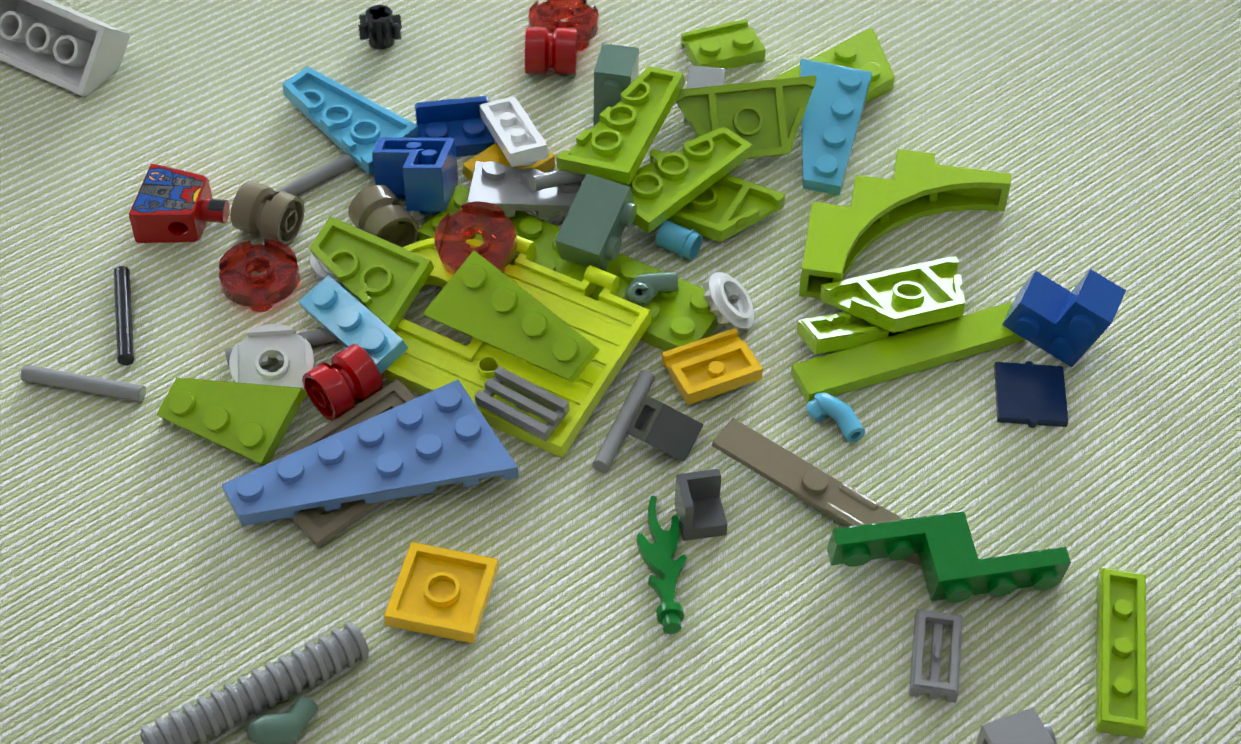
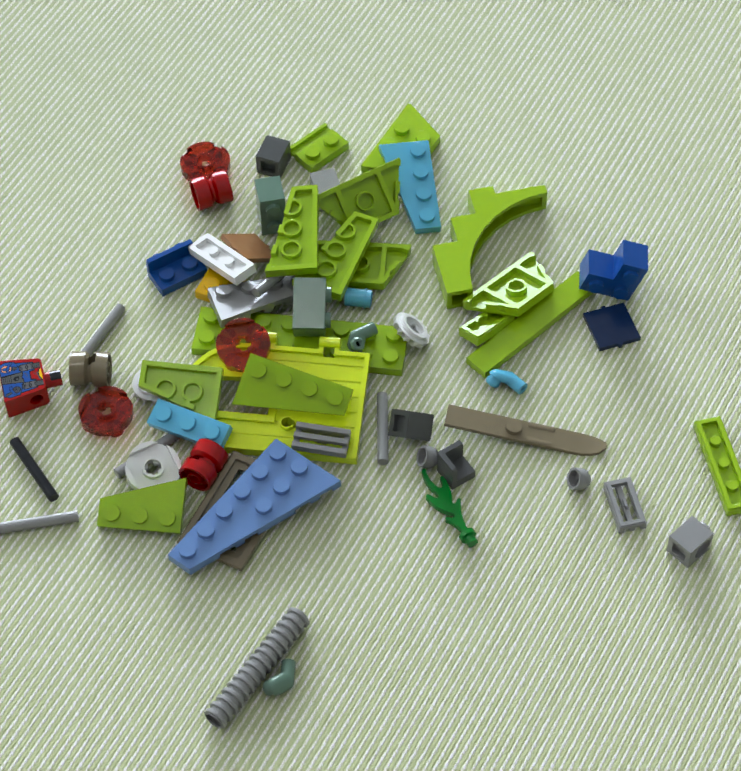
camera: 20 degrees left, 5 degrees up
(345, 116) = (102, 283): medium azure wing -> none
(380, 27) = (85, 209): black gear -> none
(382, 215) = (165, 347): dark tan wheel -> none
(417, 170) = (173, 305): blue brick -> none
(442, 592) = (332, 571): yellow plate -> none
(555, 127) = (248, 246): none -> medium nougat piece
(657, 36) = (273, 156): none -> dark grey panel
(664, 480) = (426, 456): none -> light grey hinge
(711, 366) = (419, 375): yellow plate -> none
(880, 590) = (578, 478): none -> light grey hinge
(948, 556) = (608, 445): green bracket -> none

